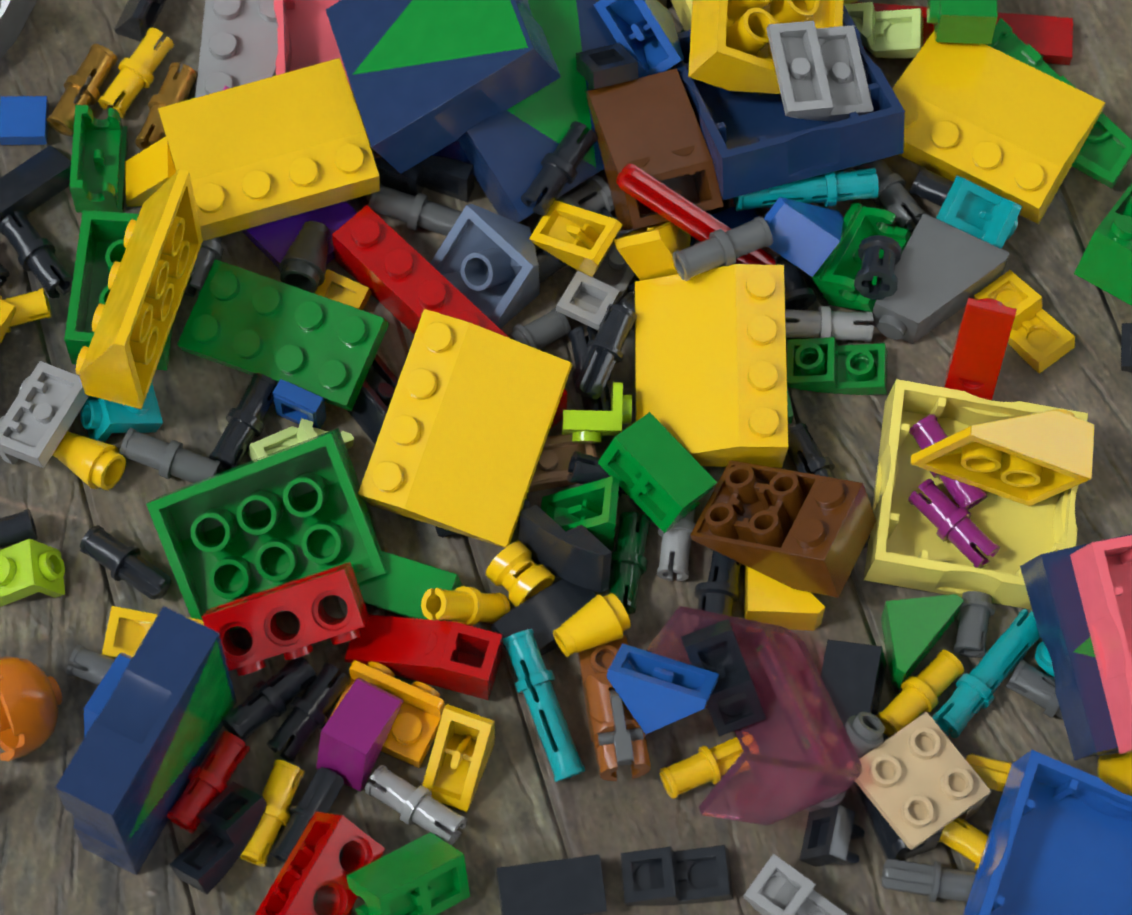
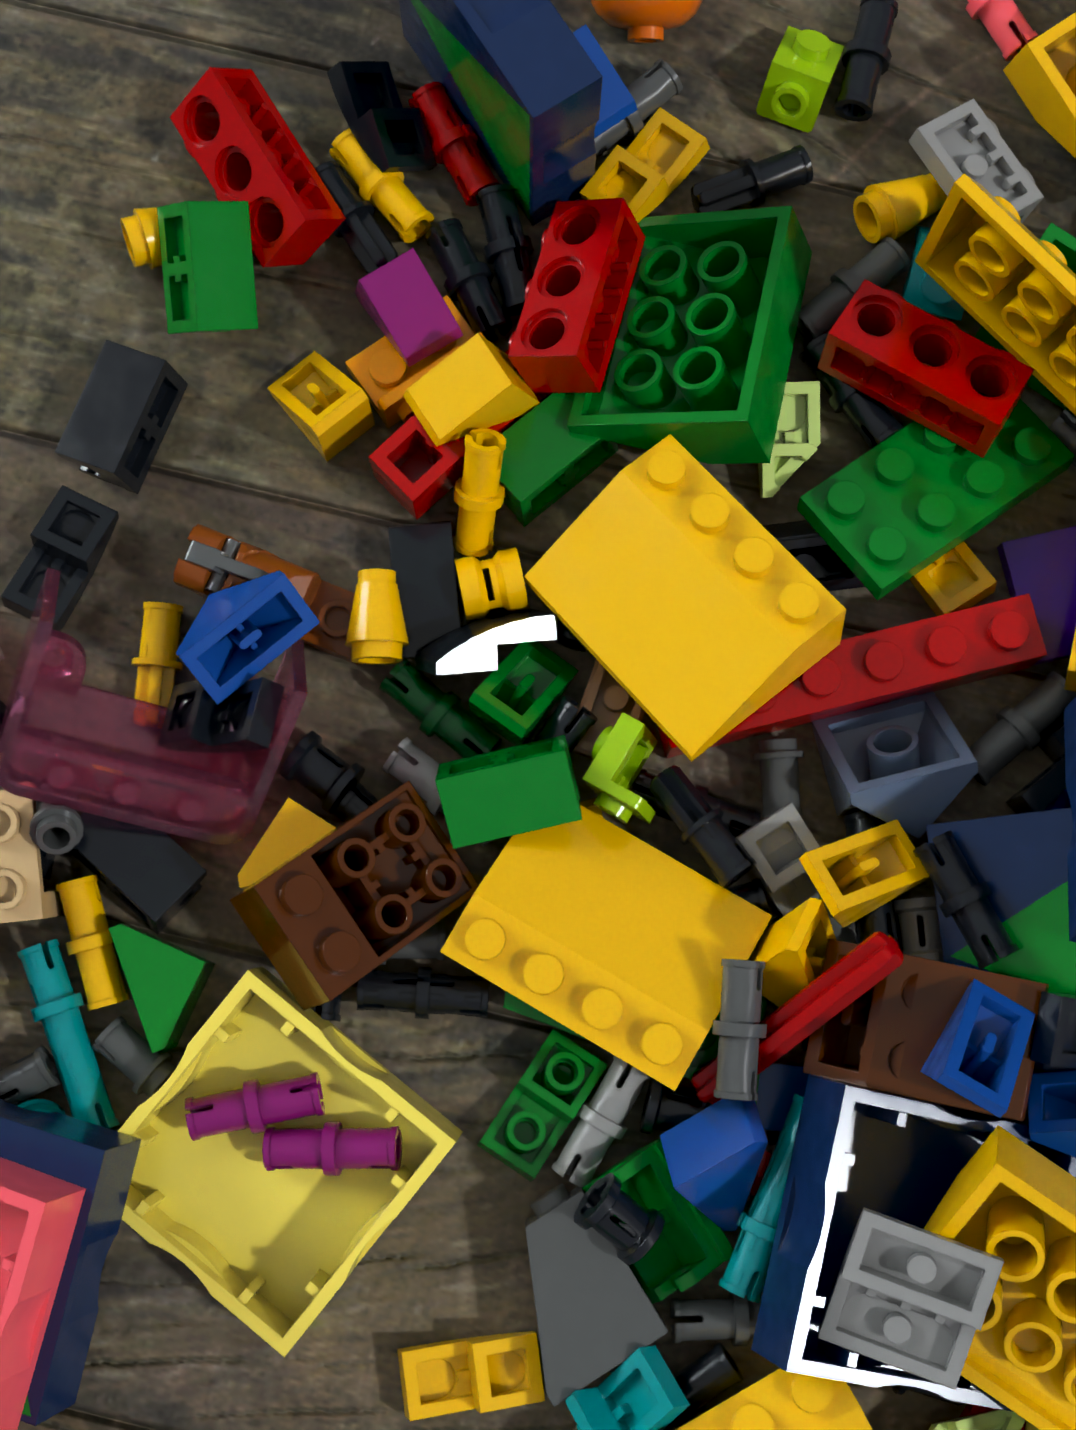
camera: 120 degrees right, 15 degrees up
(229, 382) = (937, 395): none -> red brick
(297, 403) = (837, 455): blue tile -> none
(307, 257) = (1019, 557): pearl dark grey cone -> none
(403, 641) = (469, 392): none -> yellow slope
(415, 805) = (299, 333): light grey pin -> none
(543, 704) = (346, 521): teal pin -> none
(653, 100) = (982, 1048): none -> blue slope
(980, 347) = (428, 1263): red slope -> none
(1017, 456) = (272, 1227): yellow slope -> none

